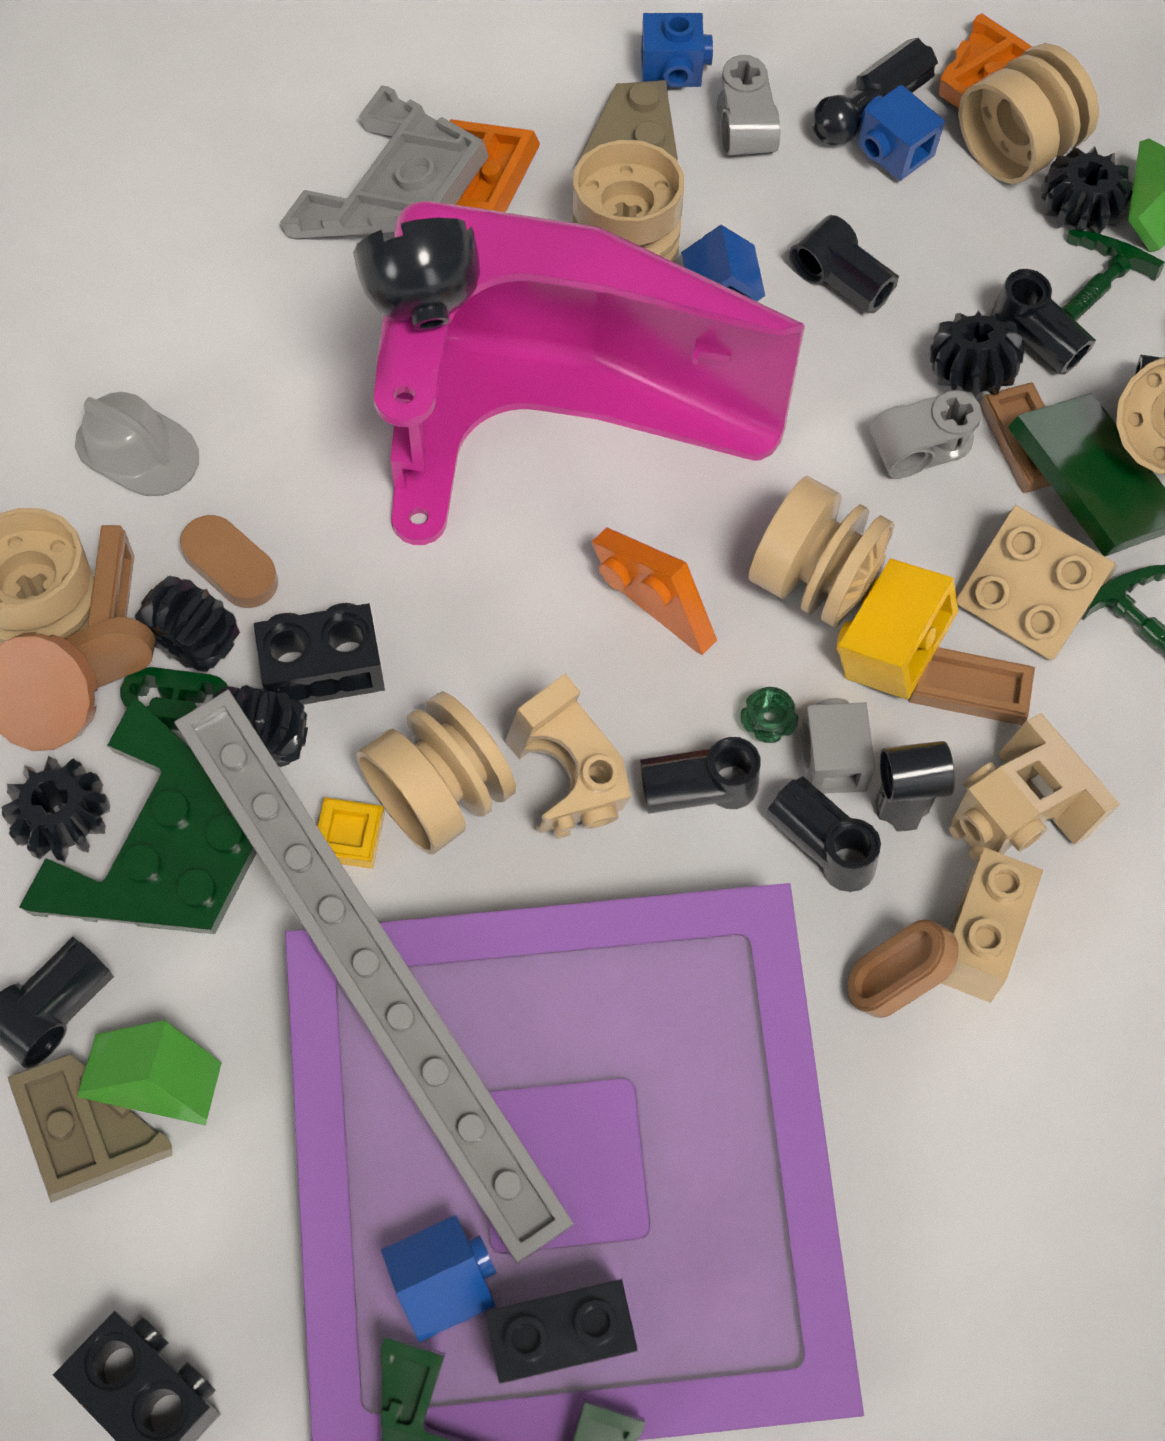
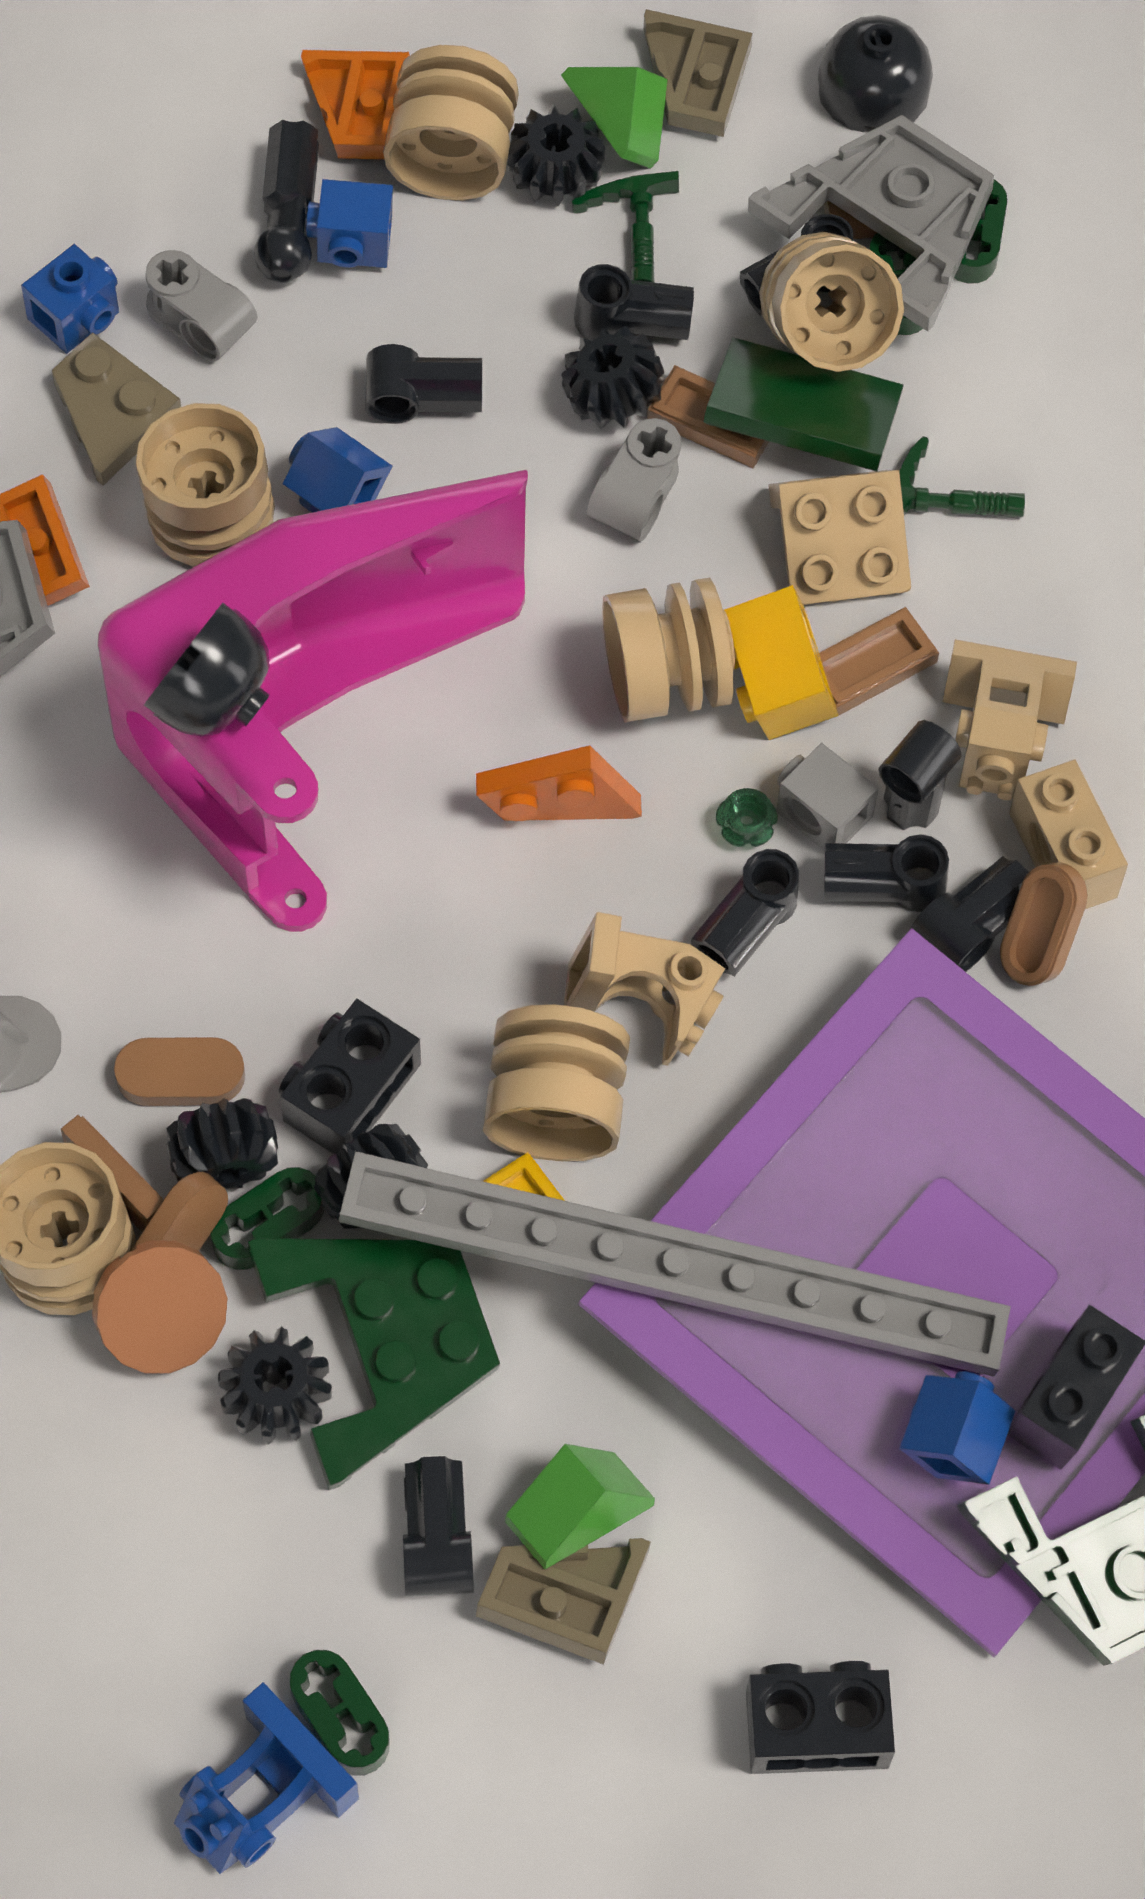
camera: 45 degrees left, 0 degrees up
(845, 920) = (970, 920): none -> black piece

